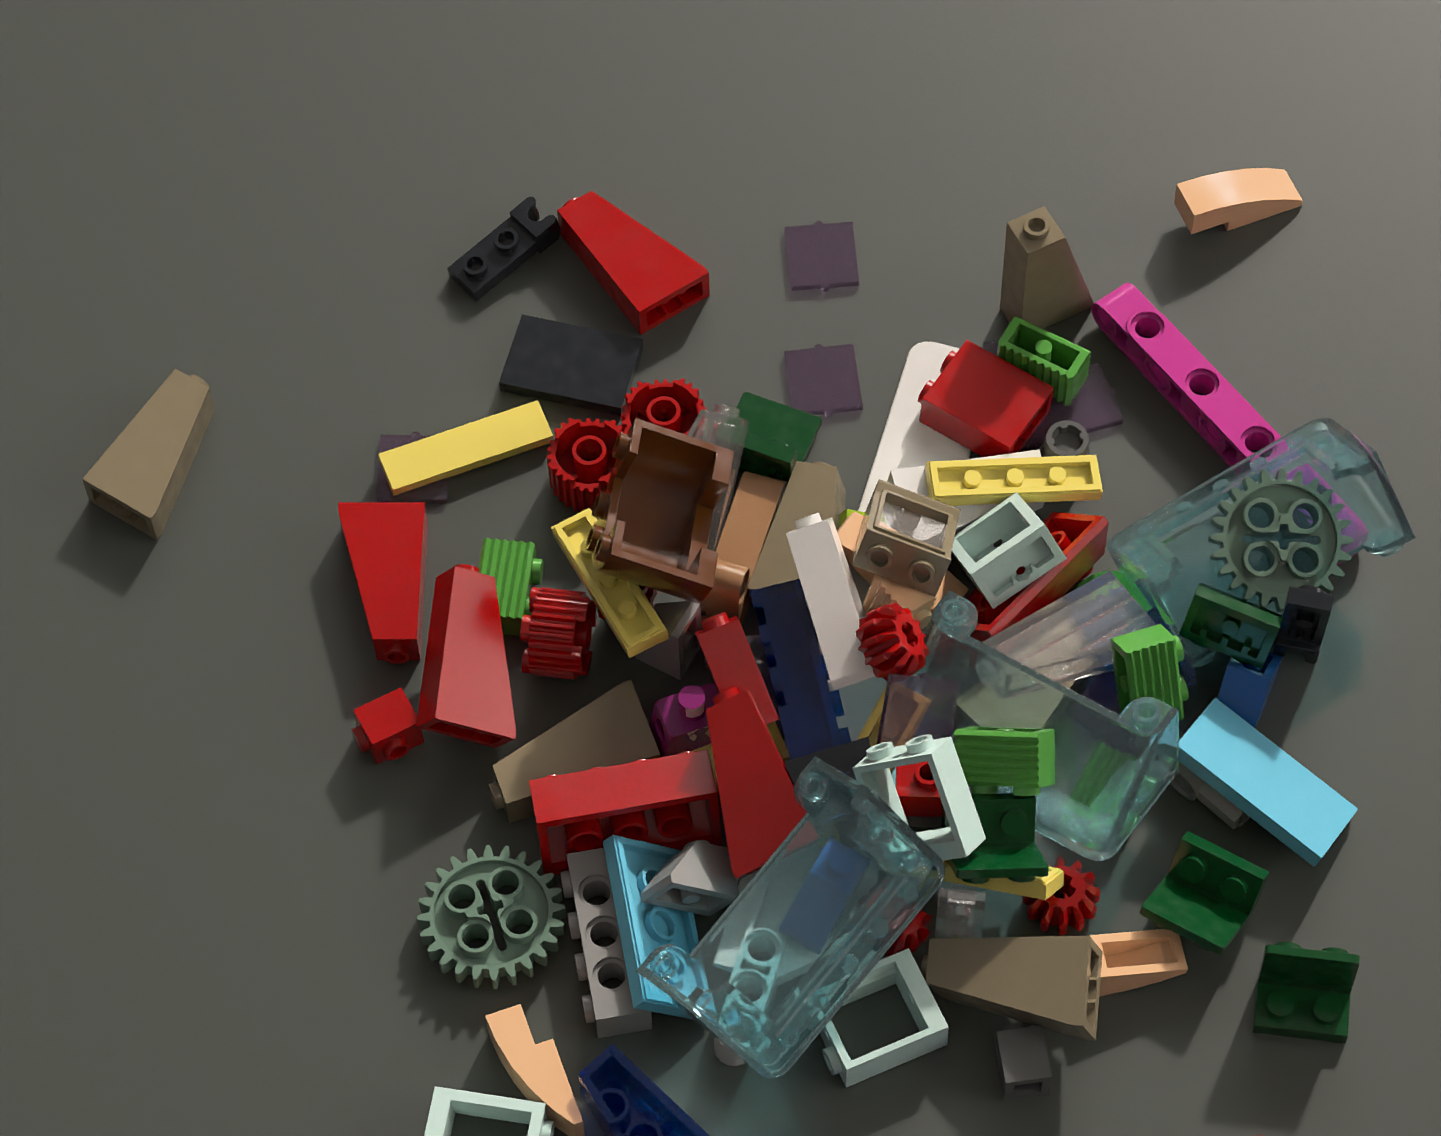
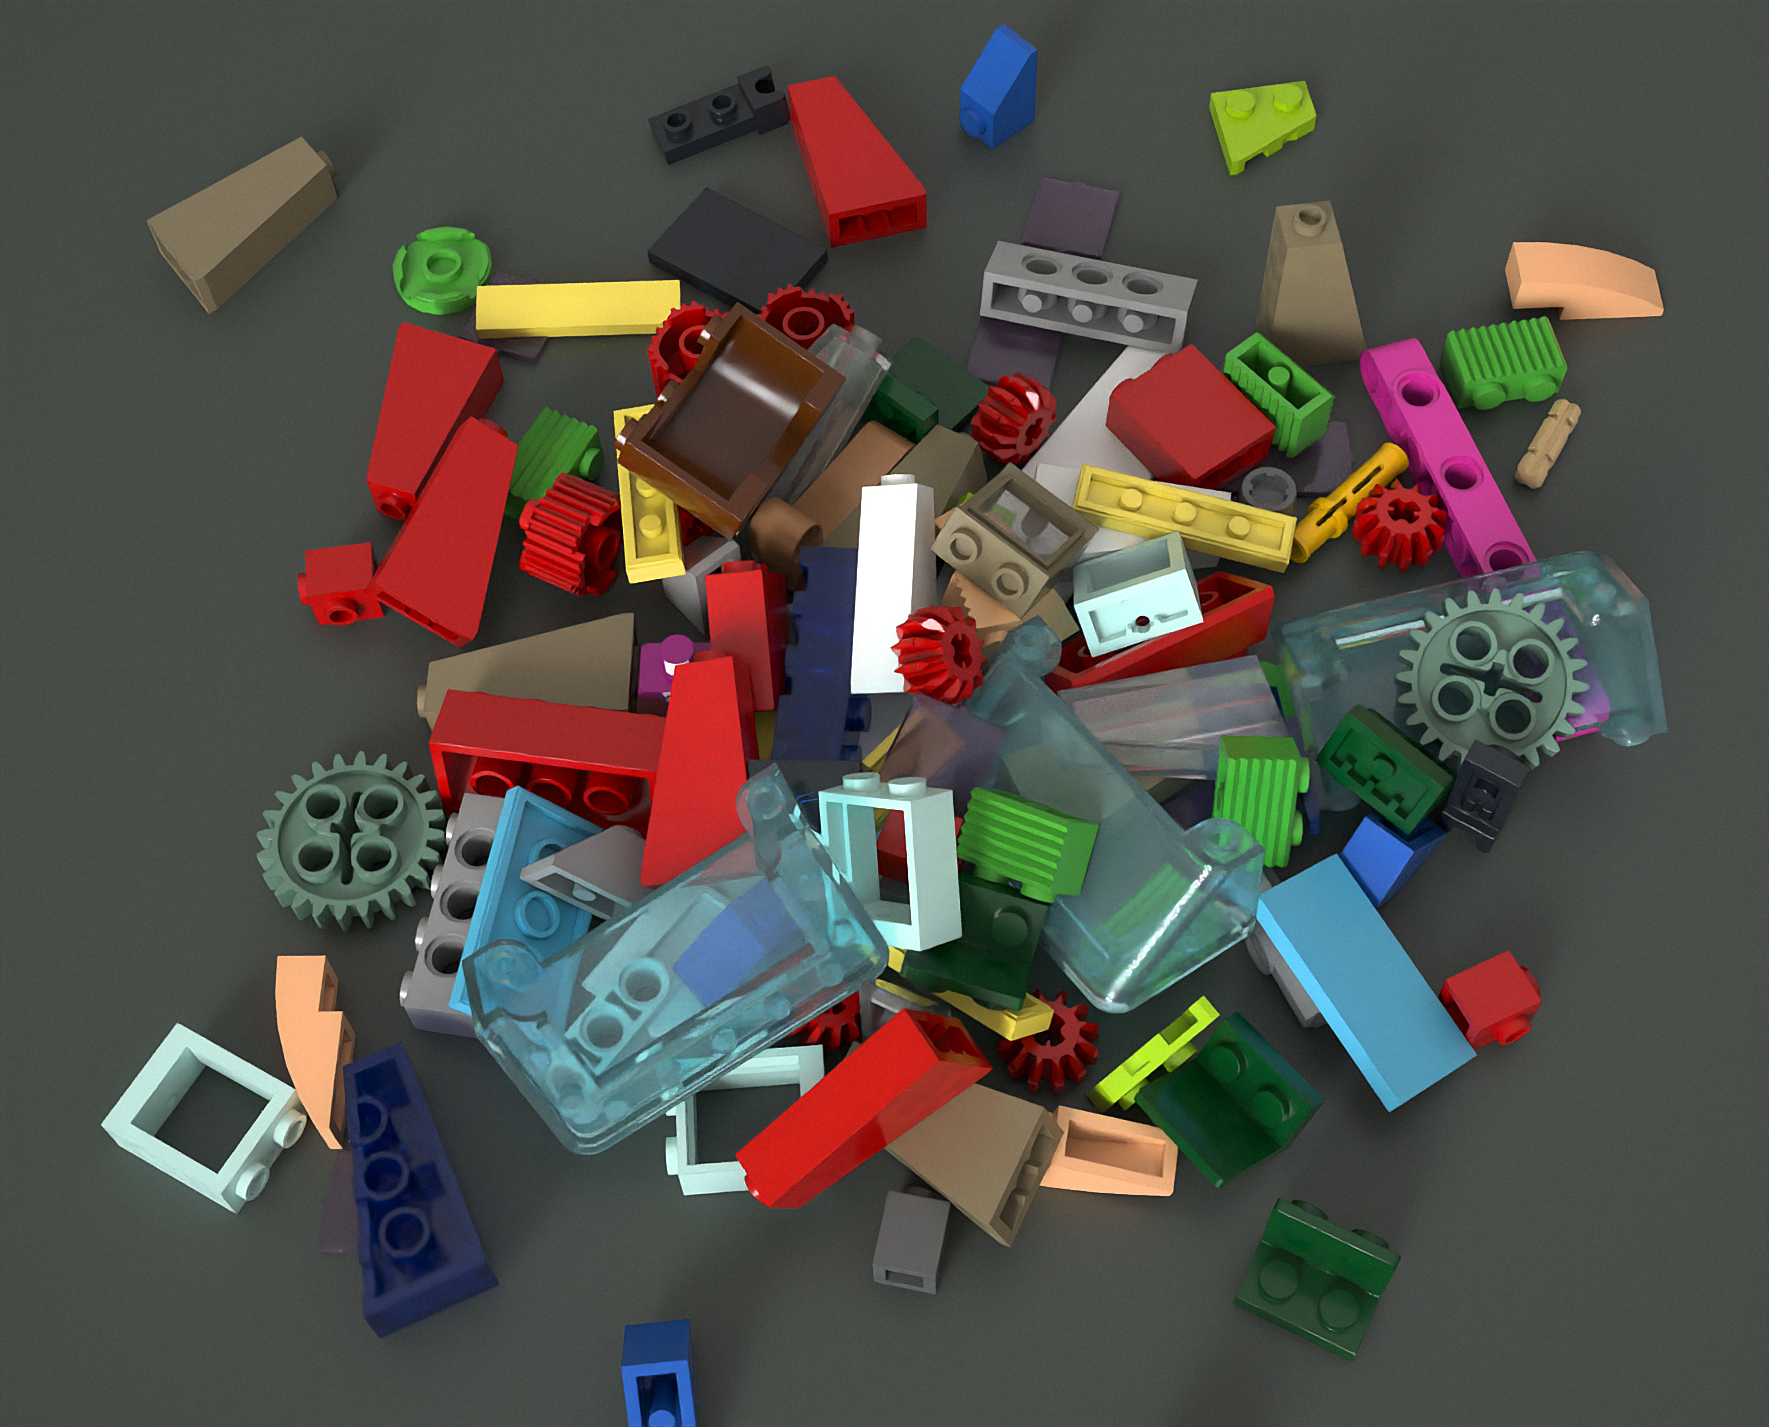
camera: 20 degrees right, 0 degrees up
(336, 447) = (442, 270): none -> bright green tile
(728, 164) = (1000, 89): none -> blue slope
(852, 438) = (1014, 418): none -> red gear
(867, 321) = (1088, 297): none -> light grey brick
(939, 128) = (1260, 120): none -> lime wing
(964, 979) = (862, 1107): none -> red slope
(1139, 394) = (1380, 468): none -> yellow pin
(1145, 874) = (1167, 1048): none -> lime wing
(1168, 436) = (1399, 526): none -> red gear
(1199, 283) = (1503, 363): none -> bright green brick
(1253, 336) = (1547, 443): none -> tan axle
(1356, 767) = (1492, 1001): none -> red brick

